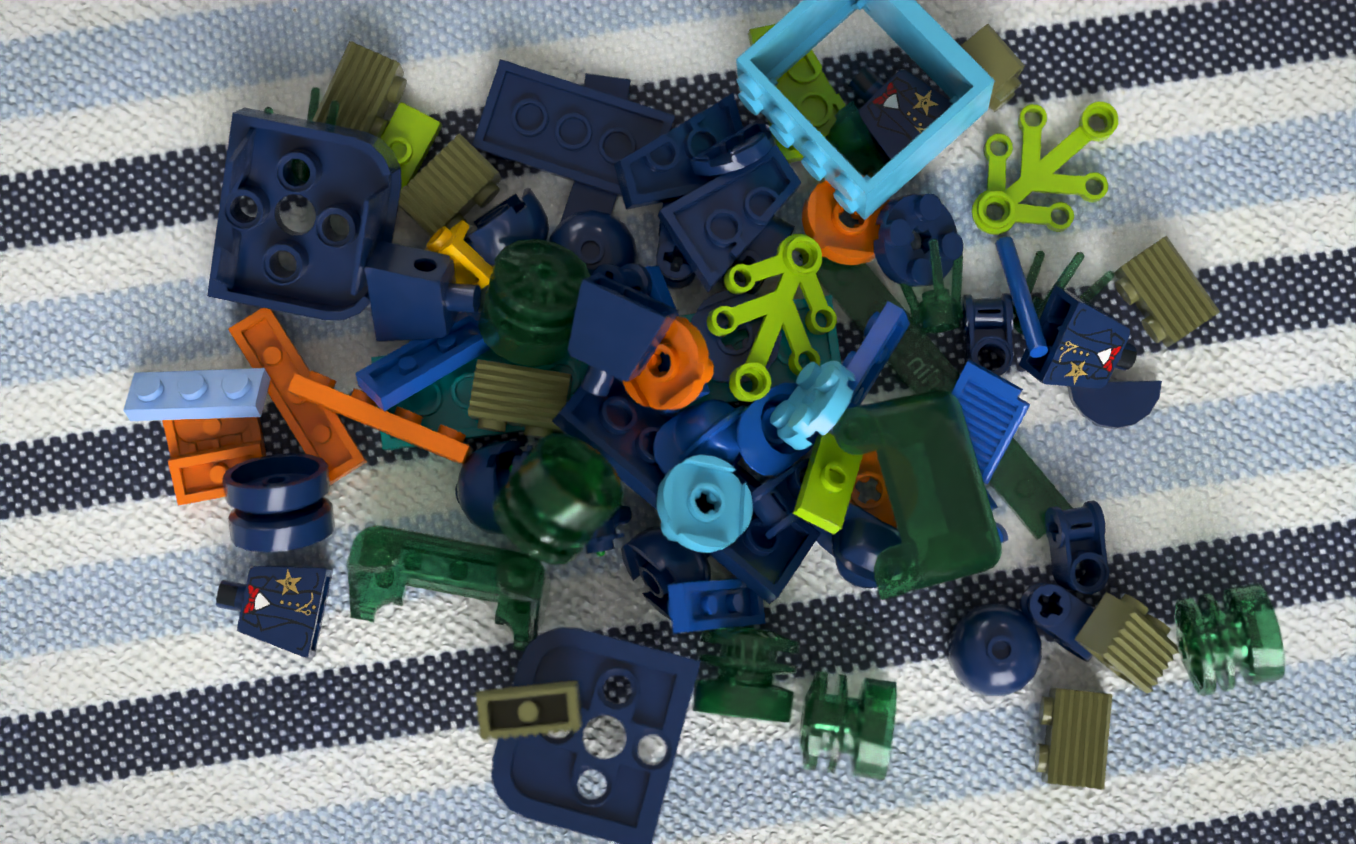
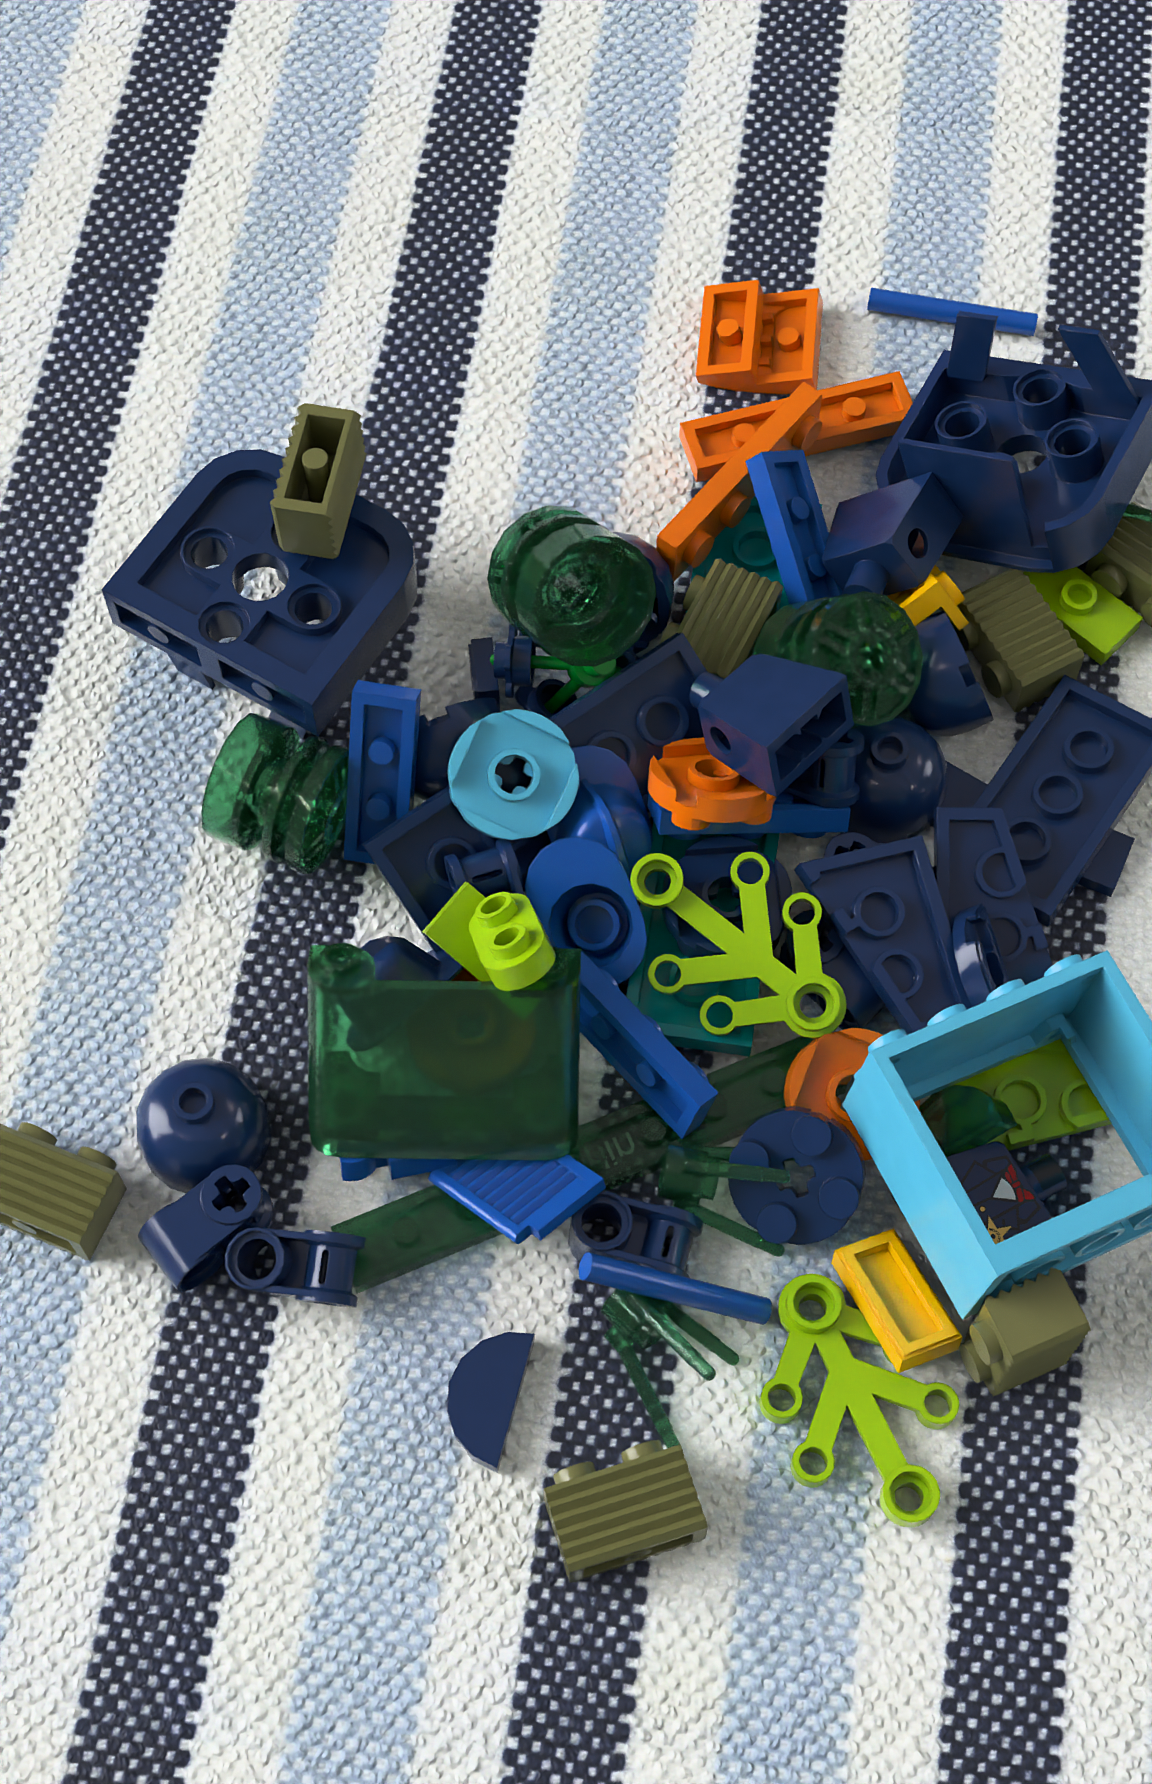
camera: 105 degrees right, 20 degrees down
(146, 303) = (947, 310): none -> blue bar
(197, 394) = (828, 321): light blue plate -> none
(279, 502) = (671, 353): dark blue wheel -> none
(280, 605) = (549, 352): dark blue torso -> none
(391, 559) = (561, 451): clear green windscreen -> none
(596, 566) = (481, 670): none -> dark blue tile
(814, 404) = (589, 929): medium azure plate -> none
(842, 461) = (511, 941): none -> lime plate
(849, 725) = (172, 895): clear green wheel -> none
(976, 158) = (896, 1300): none -> yellow tile
(1081, 344) = (583, 1348): dark blue torso -> none
(1128, 641) = (141, 1284): olive brick -> none
(1239, 637) = (91, 1413): clear green wheel -> none

